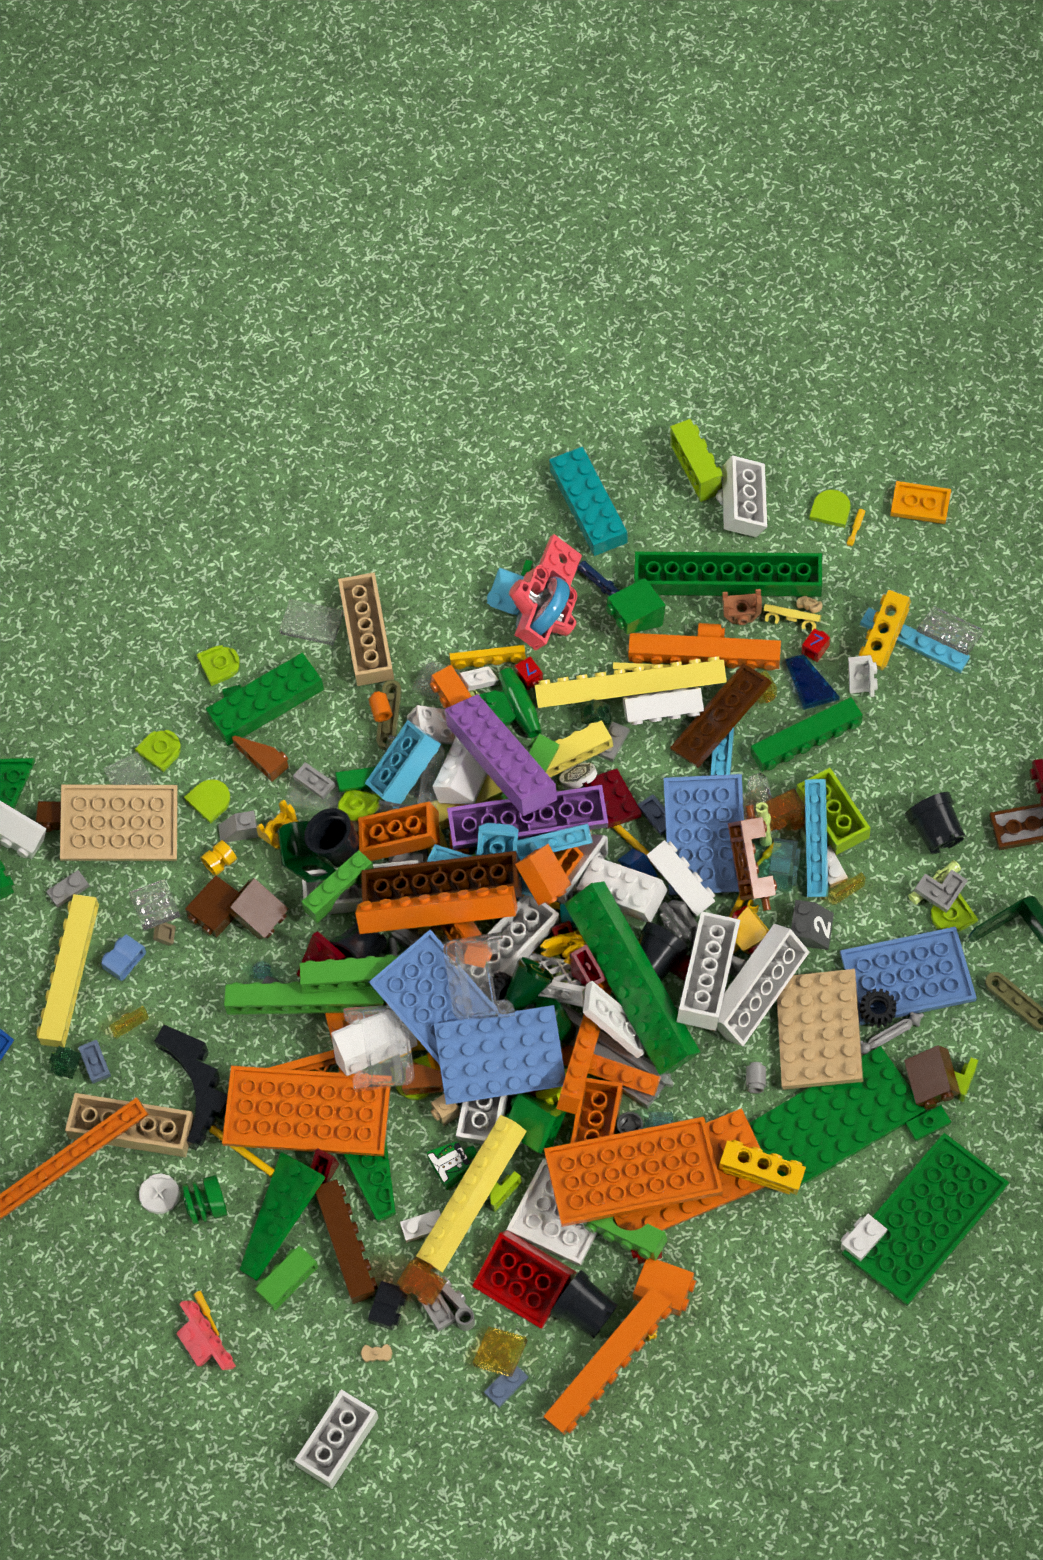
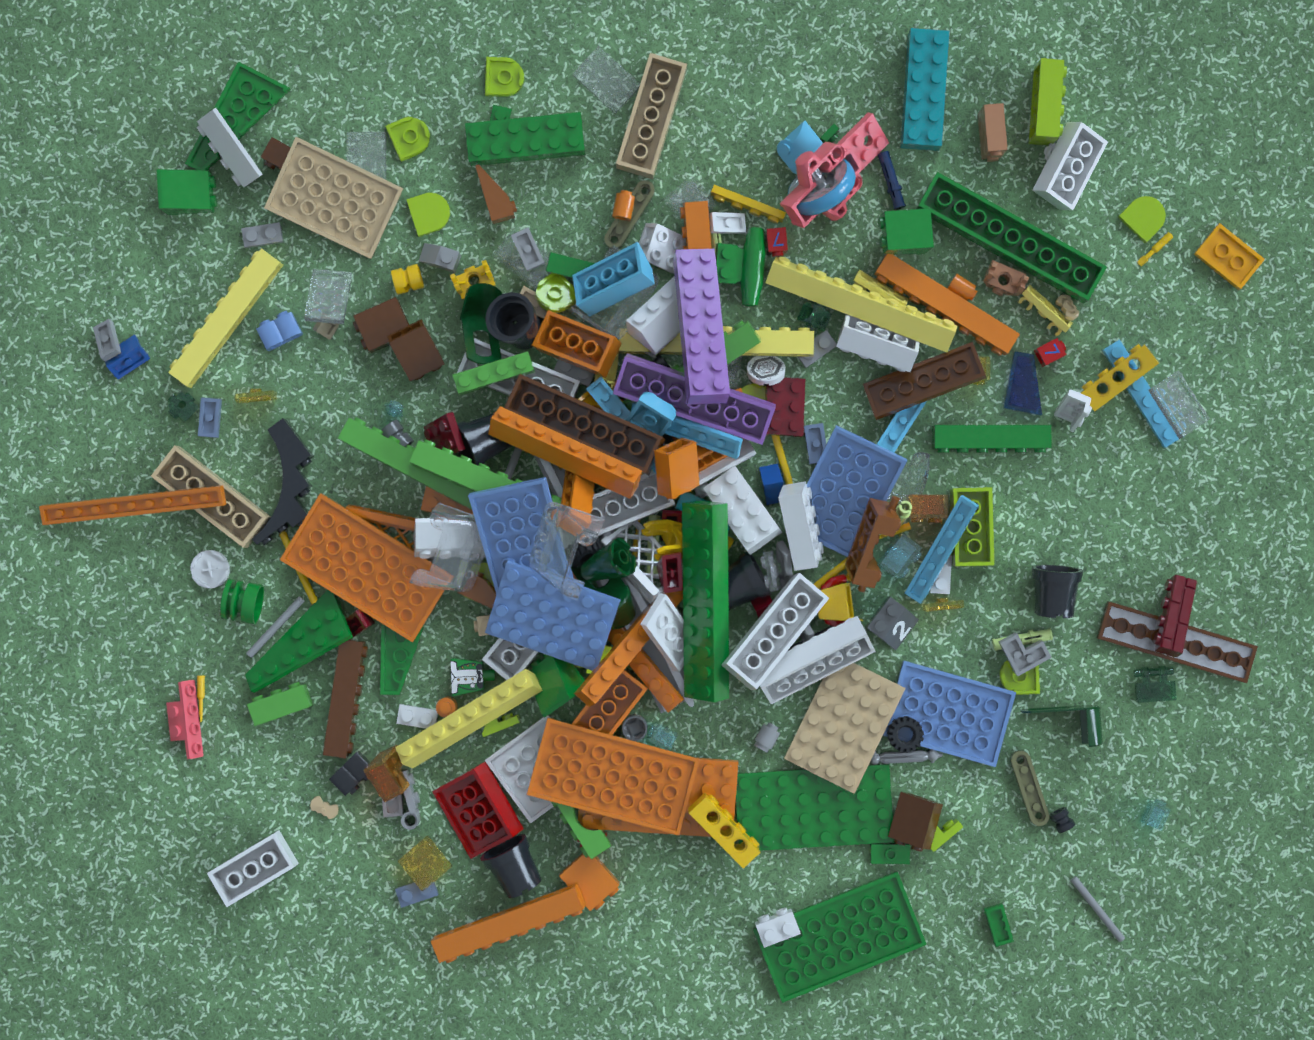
camera: 20 degrees right, 25 degrees up
(246, 1213) = (275, 626): none -> light grey bar
(443, 1196) = (446, 706): none -> orange brick
(663, 502) = (992, 132): none -> nougat brick

